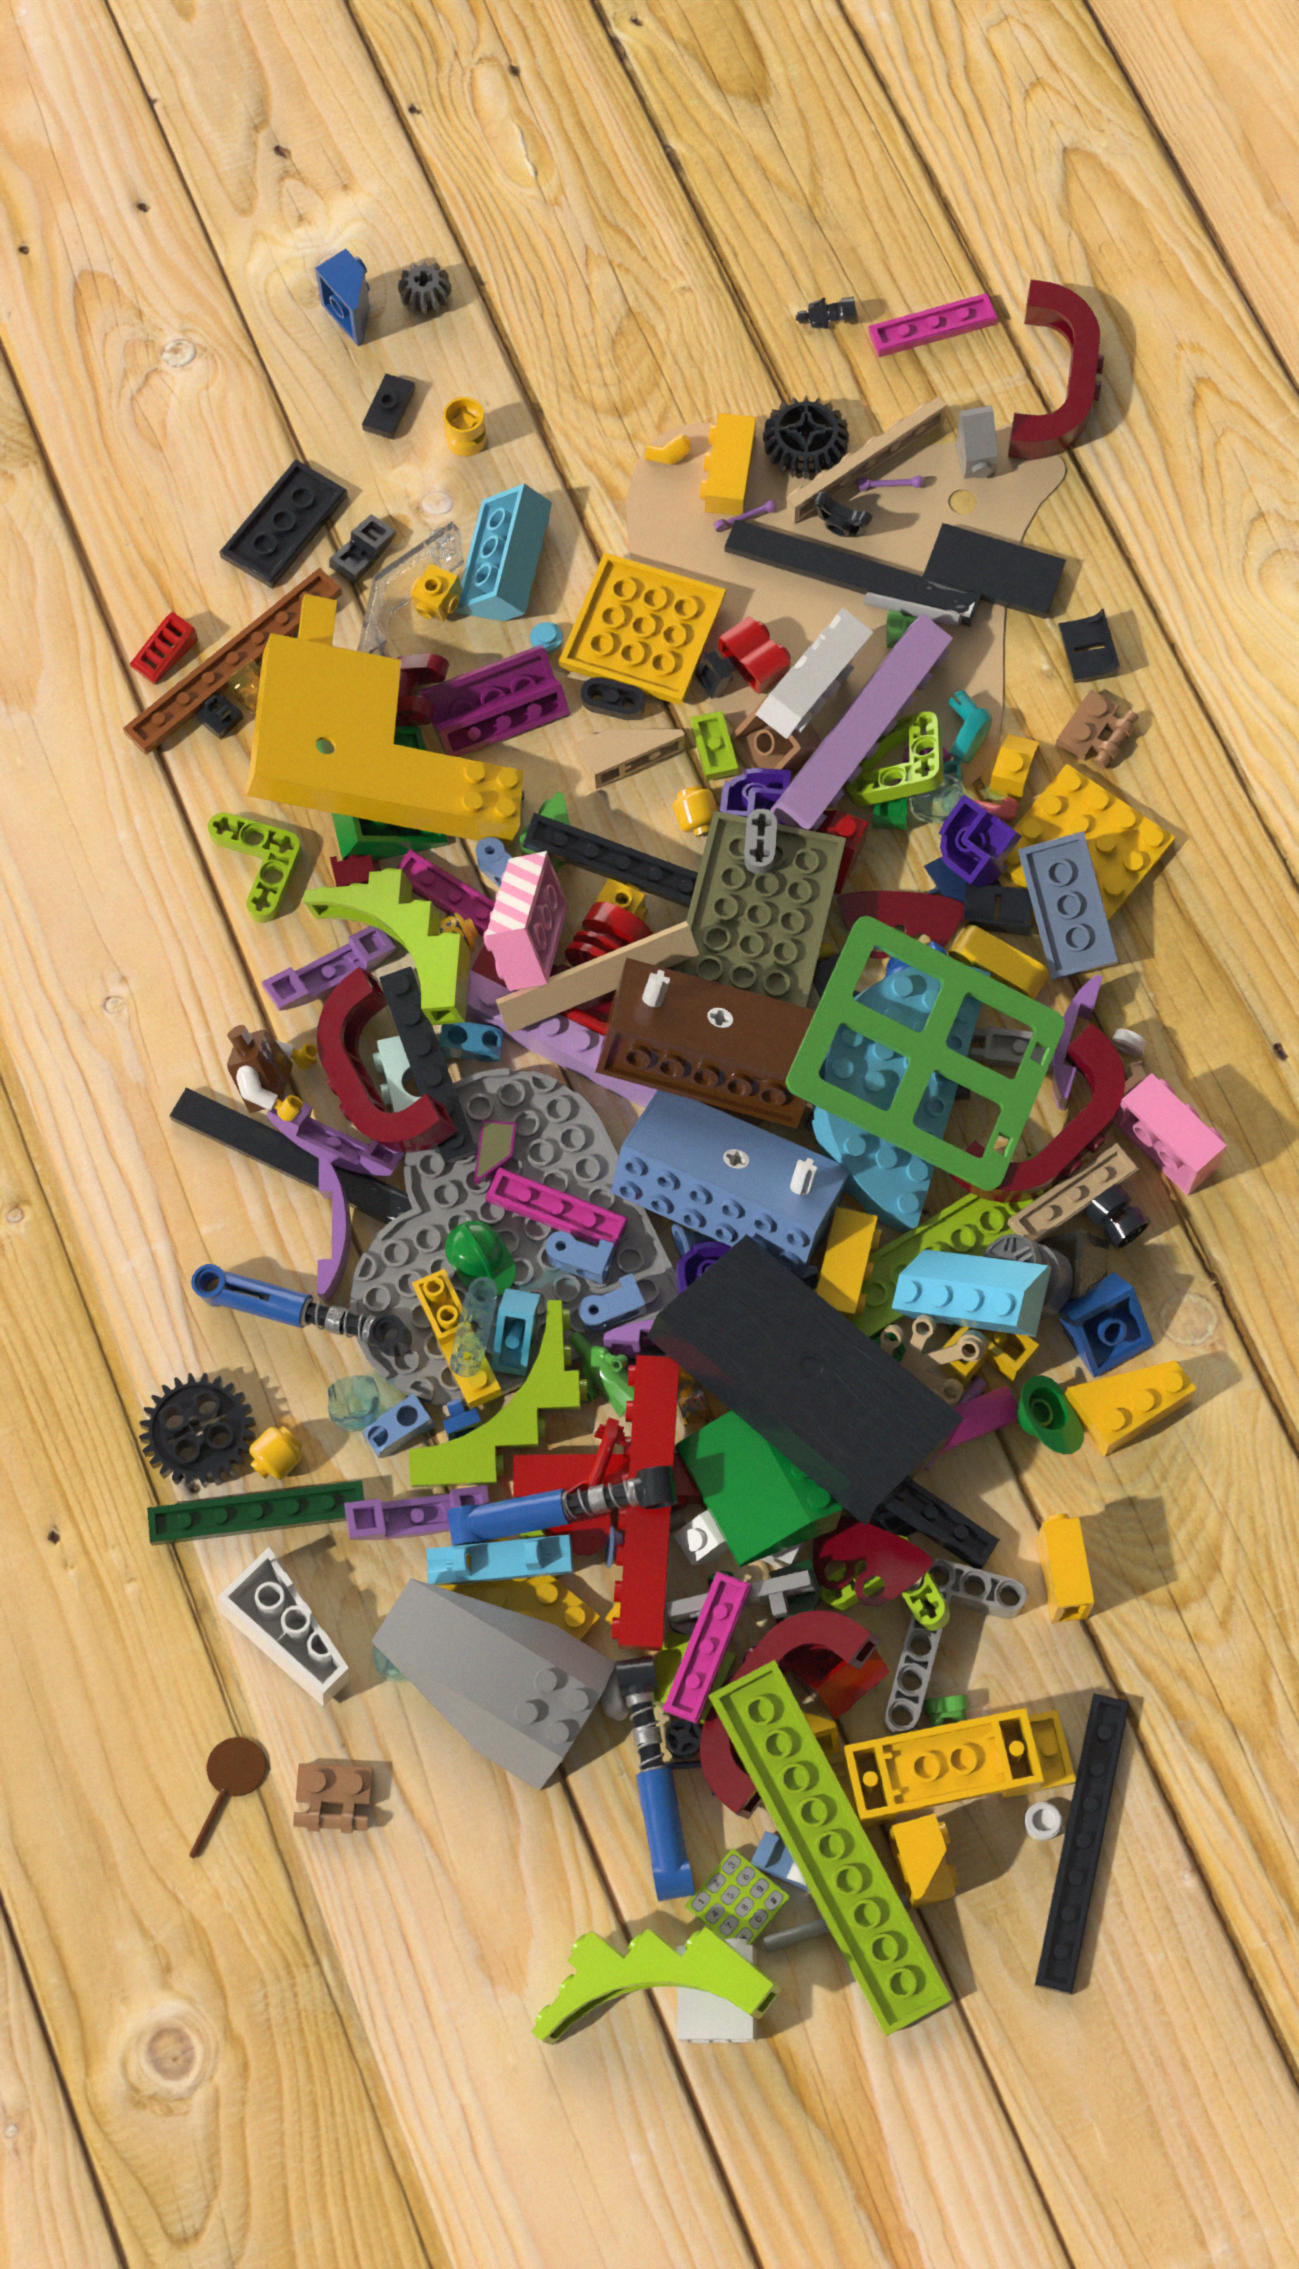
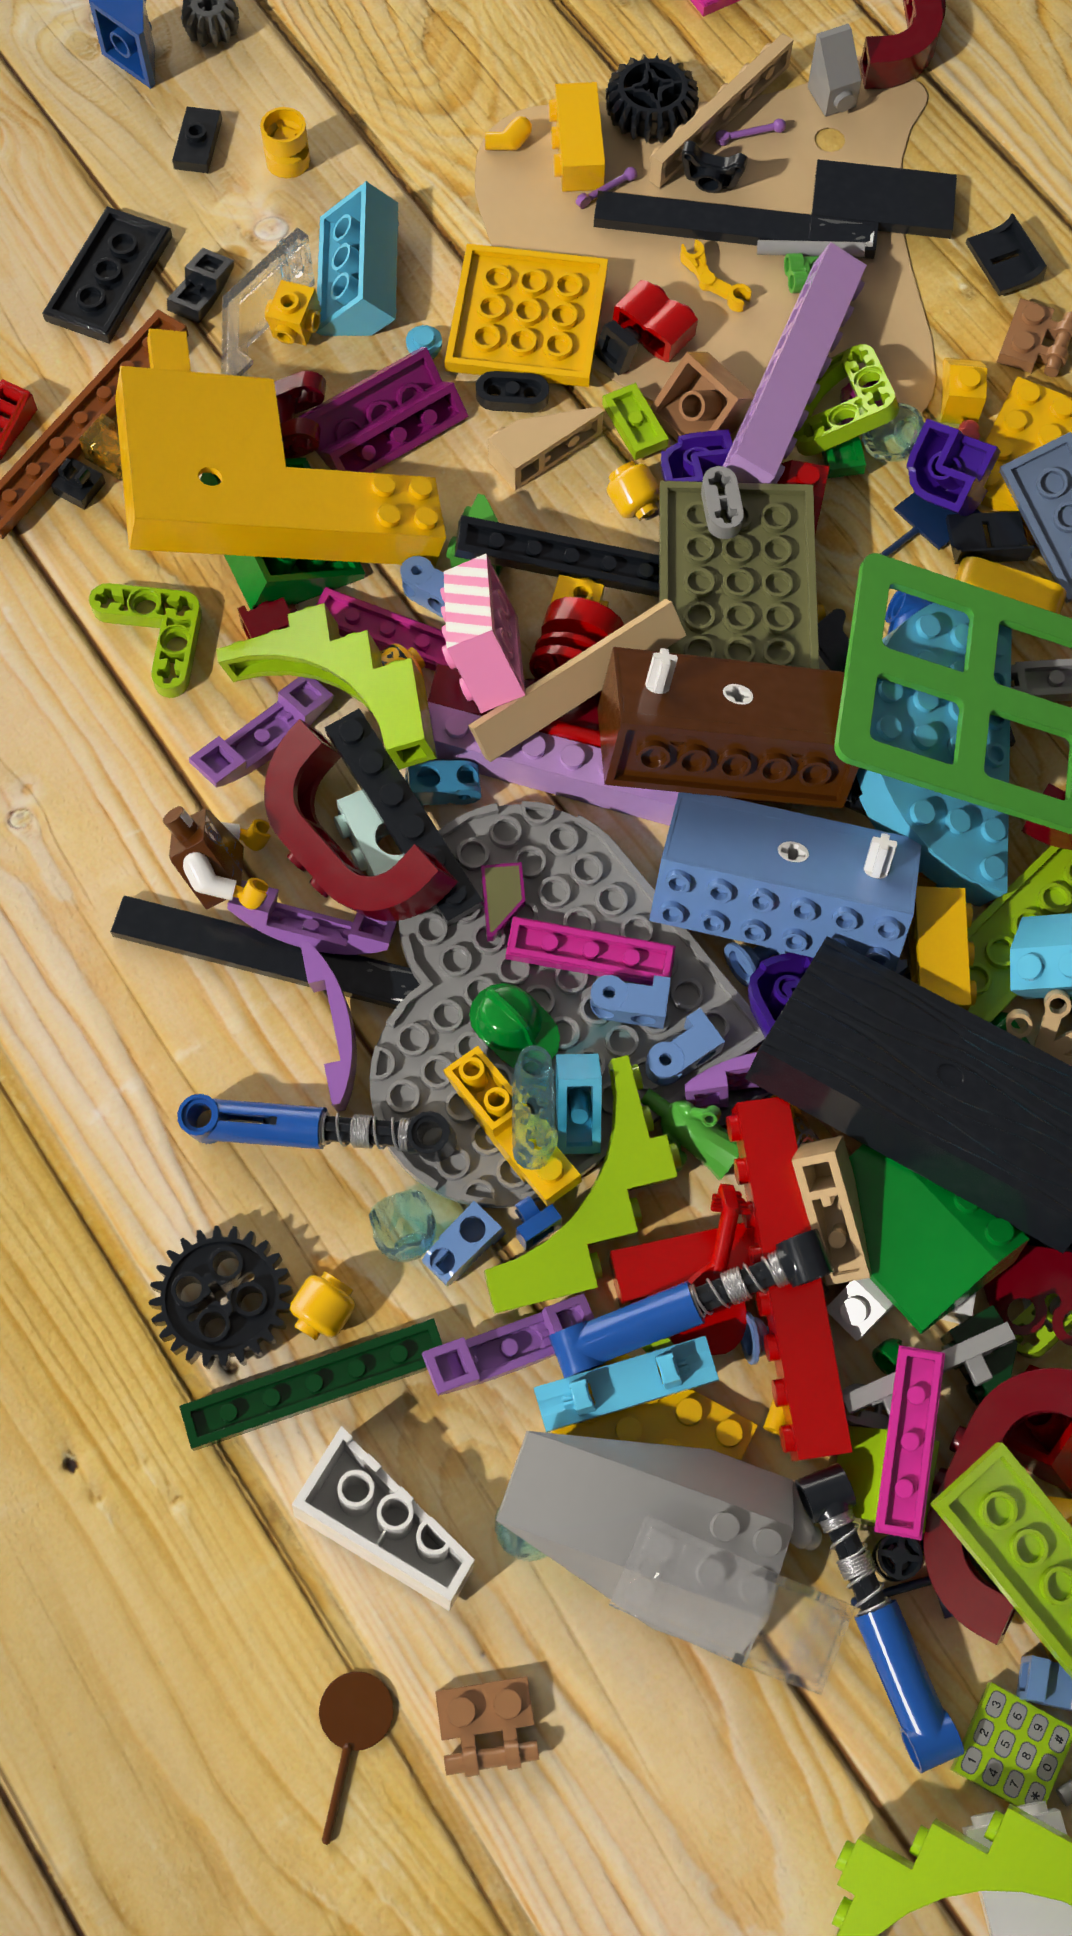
camera: 15 degrees left, 0 degrees up
(540, 1743) = (732, 1606): none -> clear windscreen
(693, 1453) = (833, 1206): none -> tan slope
(808, 605) = (708, 282): none -> yellow piece
(815, 675) = (735, 320): white wedge -> none
(918, 913) = (842, 561): dark red piece -> none
(972, 734) = (912, 356): teal arm -> none

